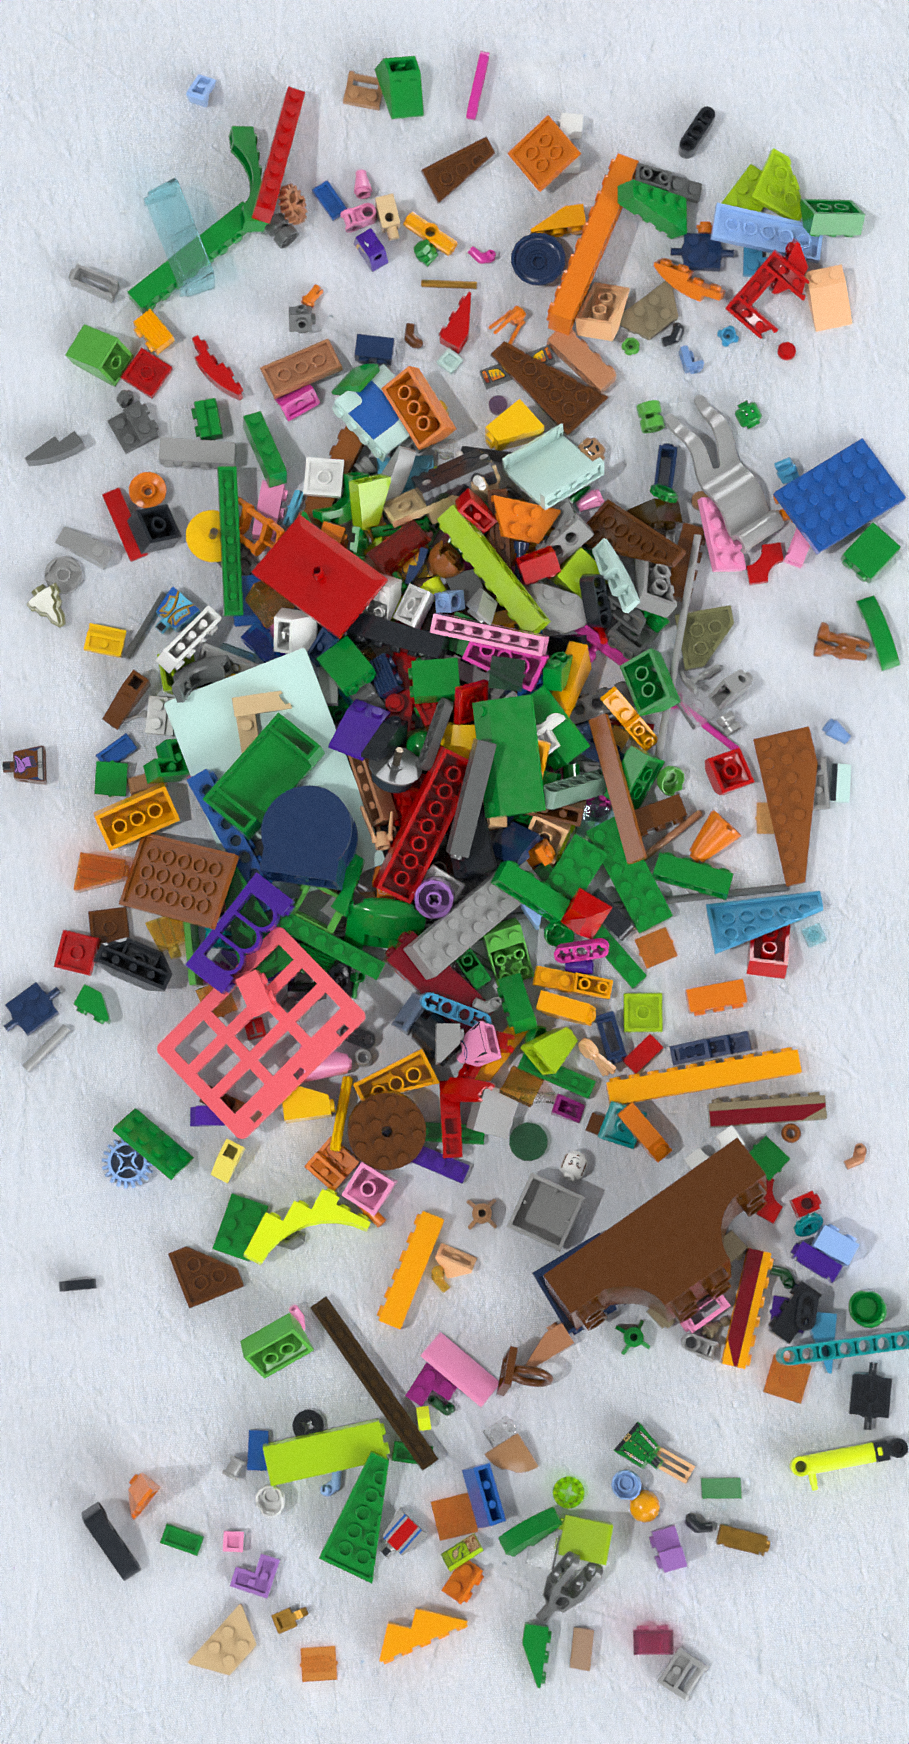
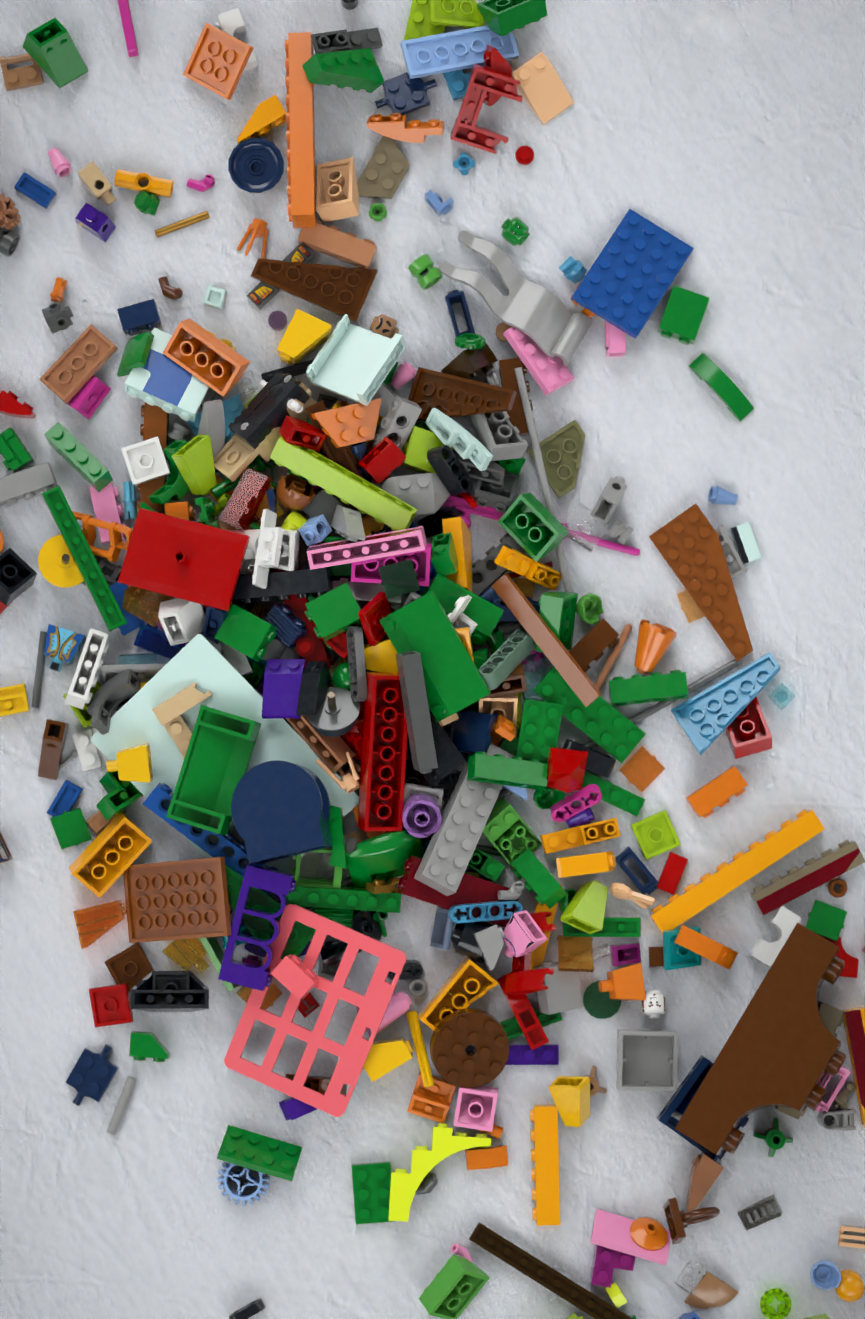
camera: 25 degrees left, 5 degrees up
(193, 741) = (133, 764): none -> yellow torso
(203, 1276) = (359, 1252): reddish brown plate -> none
(227, 1160) = (334, 1137): light yellow slope -> none
(358, 218) = (68, 196): bright pink piece -> none
(359, 1239) = (486, 1157): none -> orange slope
(369, 947) = (379, 886): none -> pearl gold plate
(399, 598) = (268, 548): none -> white bracket
(438, 1278) = (574, 1160): clear yellow arm -> none
(438, 1404) = (627, 1276): dark green arm -> none
(454, 169) = (138, 113): reddish brown wing -> none
(454, 1261) = (582, 1138): light nougat slope -> none
(457, 330) = (209, 266): red slope -> none
(461, 1218) = (572, 1099): none -> yellow slope
(478, 1374) = (648, 1234): none -> orange dish
(555, 1134) = (624, 983): none -> orange torso
(607, 1401) = (757, 1206): none -> clear smoke slope
(639, 1448) = (823, 1236): green torso -> none
(675, 336) = (415, 184): black arm -> none
(689, 683) = (569, 509): light grey piece -> none
(704, 228) = (398, 69): orange plate -> none
(710, 1048) = (731, 841): dark blue slope -> none
(728, 772) = (639, 577): red slope -> none
(770, 556) = (591, 357): red tile -> none
(845, 648) = (698, 414): dark orange piece -> none

